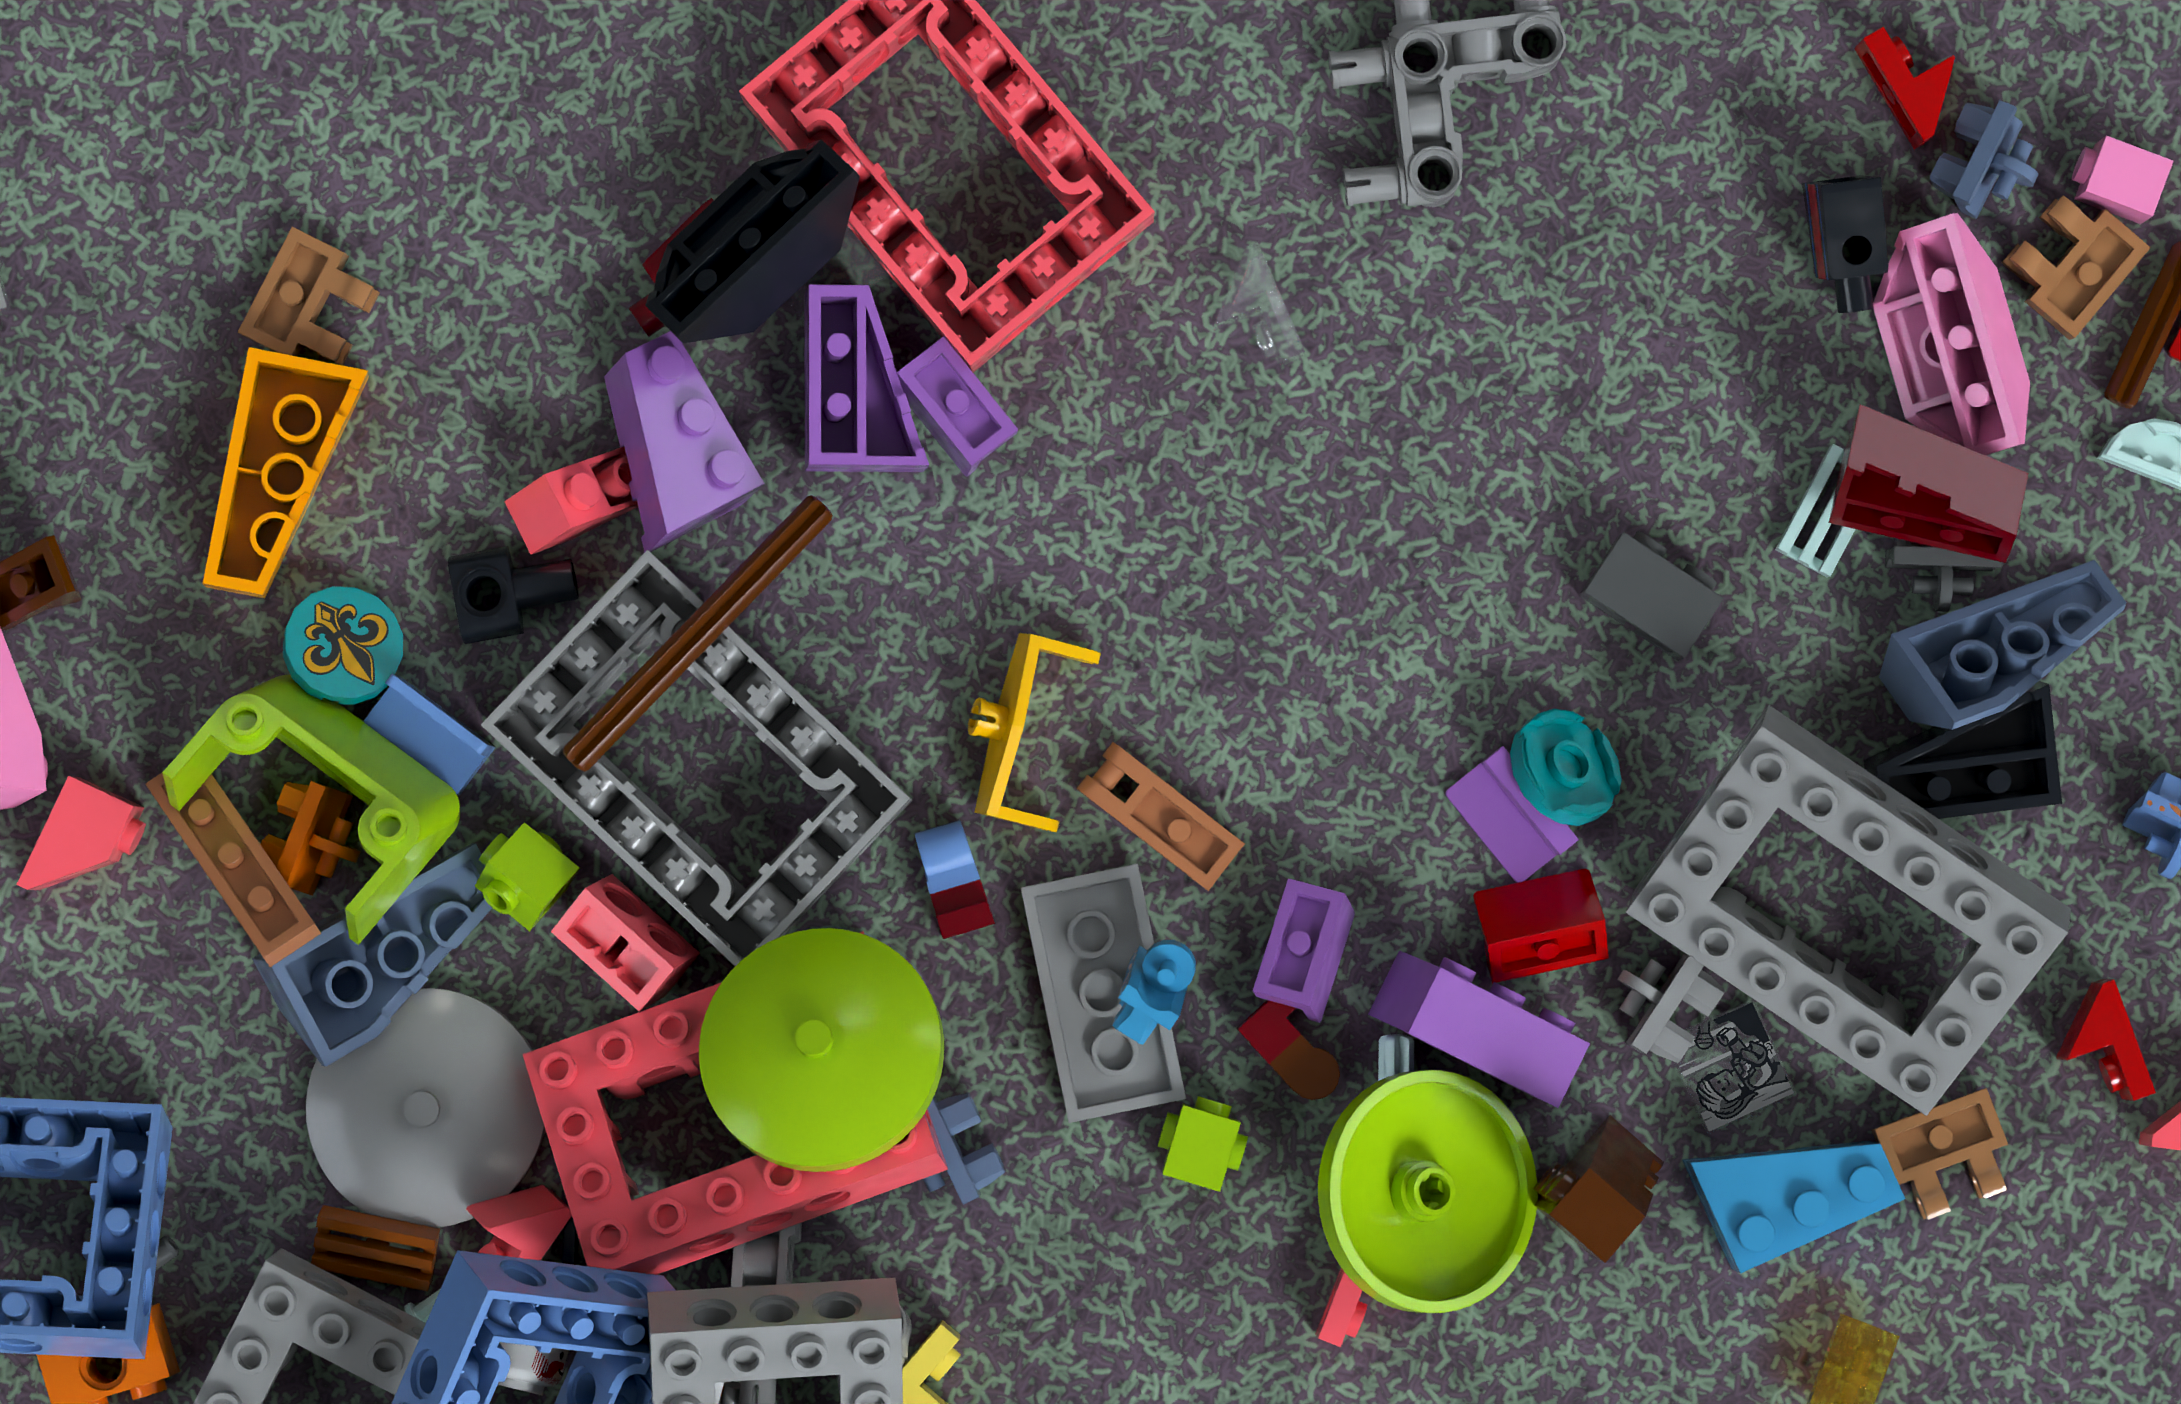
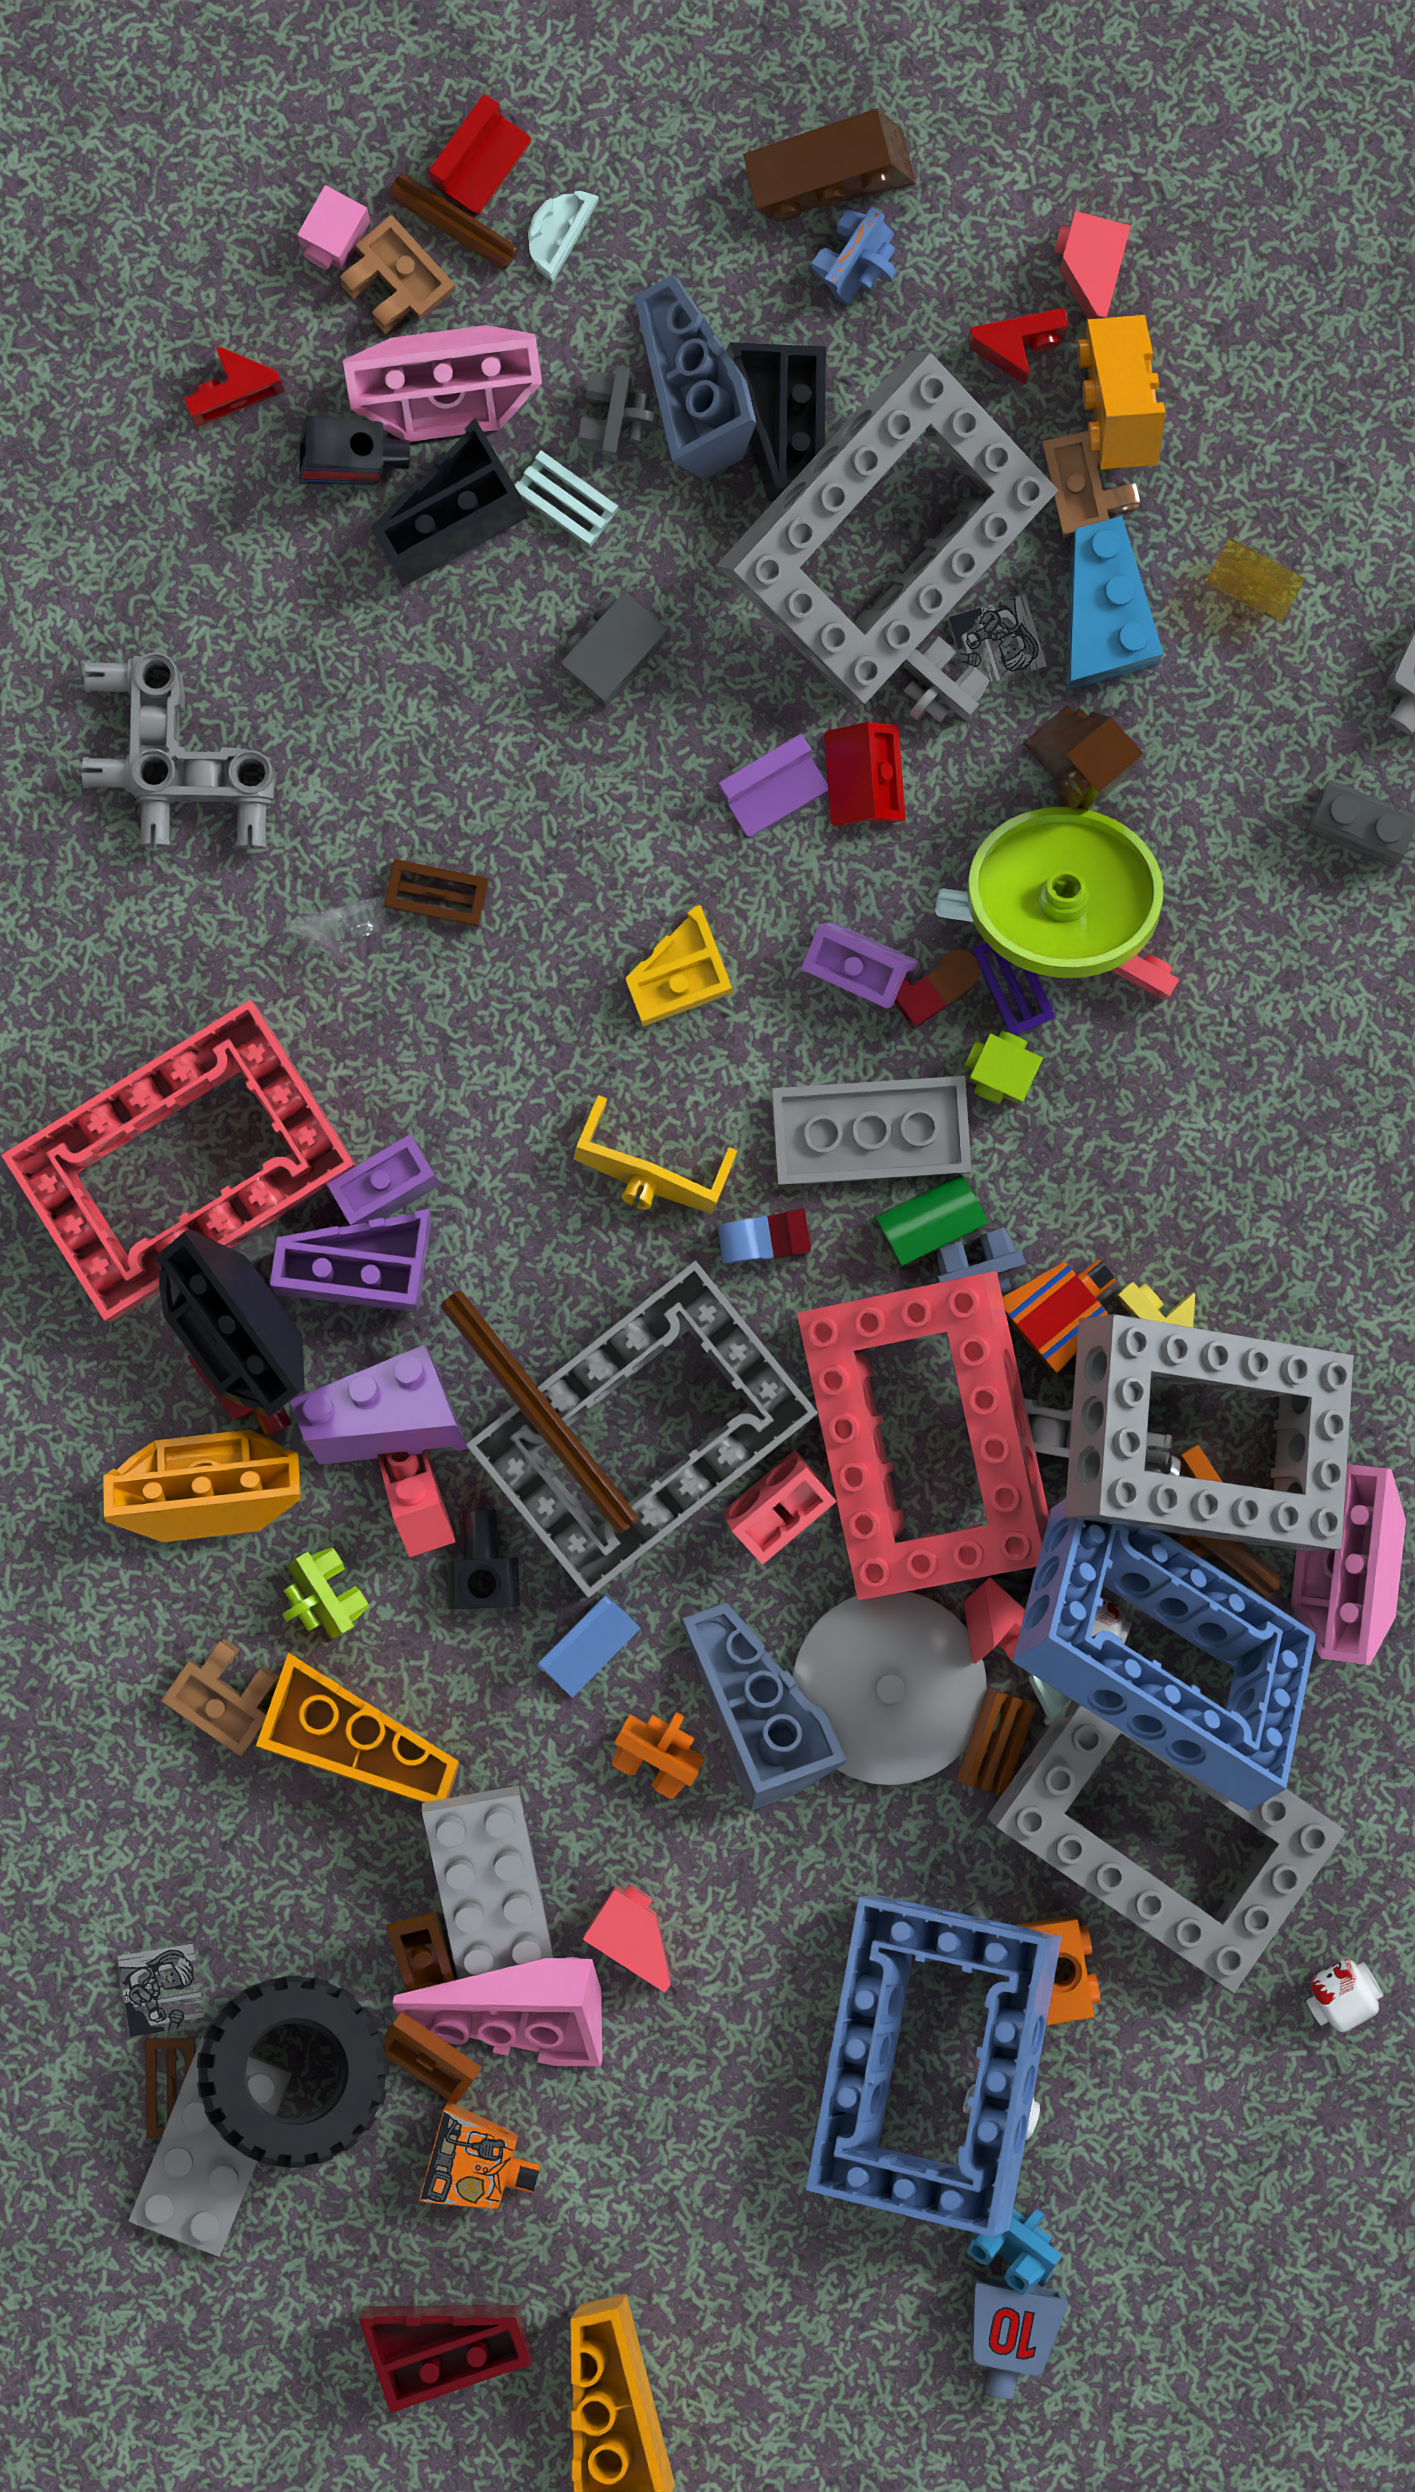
camera: 80 degrees left, 0 degrees up
(123, 650) = (487, 1880): none -> light grey plate
(239, 869) = (668, 1814): nougat plate -> none
(342, 645) = (507, 1704): teal tile -> none
(408, 805) = (643, 1665): lime windscreen -> none
(427, 421) = (333, 1612): none -> lime hips
(524, 875) = (713, 1581): lime brick -> none
(557, 238) = (202, 1486): none -> light orange wedge
(821, 1049) = (888, 1355): lime dish -> none
(919, 1248) = (1050, 1309): none -> torso
(1003, 1081) = (931, 1220): none -> green brick
(1154, 988) = (875, 1085): dark azure hips -> none
(1162, 818) = (737, 1063): nougat plate -> none
(1265, 732) = (680, 972): none -> yellow wing
(1266, 1169) = (1029, 1021): none -> dark purple tile
(1318, 471) = (395, 885): none -> reddish brown tile
(1481, 1026) = (939, 833): medium lavender wedge -> none
(1565, 767) = (742, 736): teal tile -> none
(1793, 369) = (450, 509): none -> black wedge
(1926, 489) = (561, 417): wedge -> none
(1994, 135) = (281, 325): sand blue hips -> none
(2060, 1177) = (1121, 392): none -> light orange wedge

